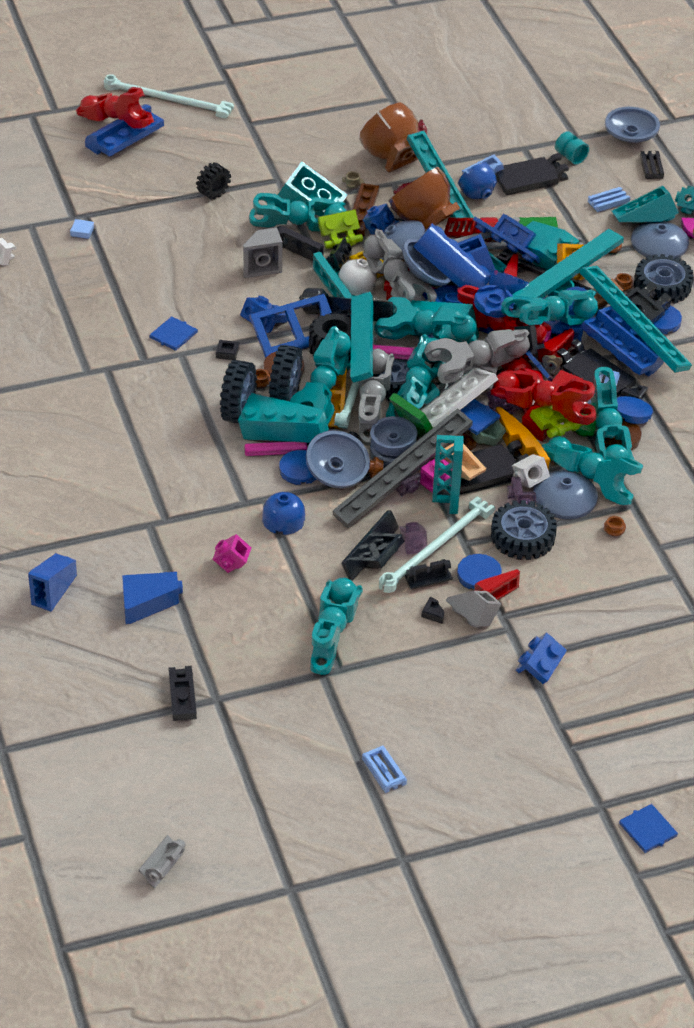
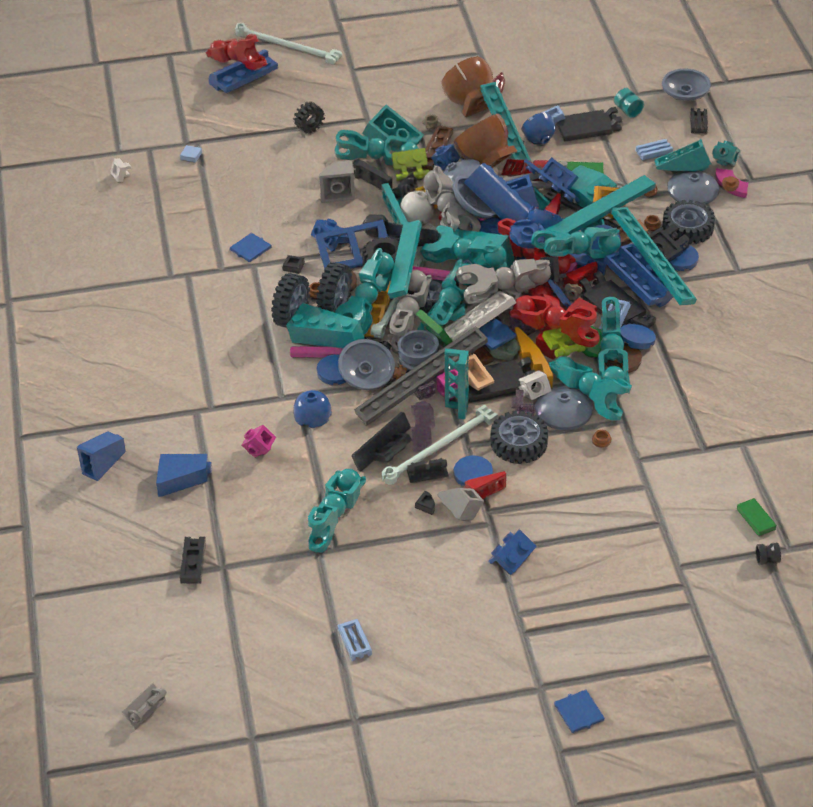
camera: 10 degrees right, 0 degrees up
(411, 510) = (423, 413): none -> bracket

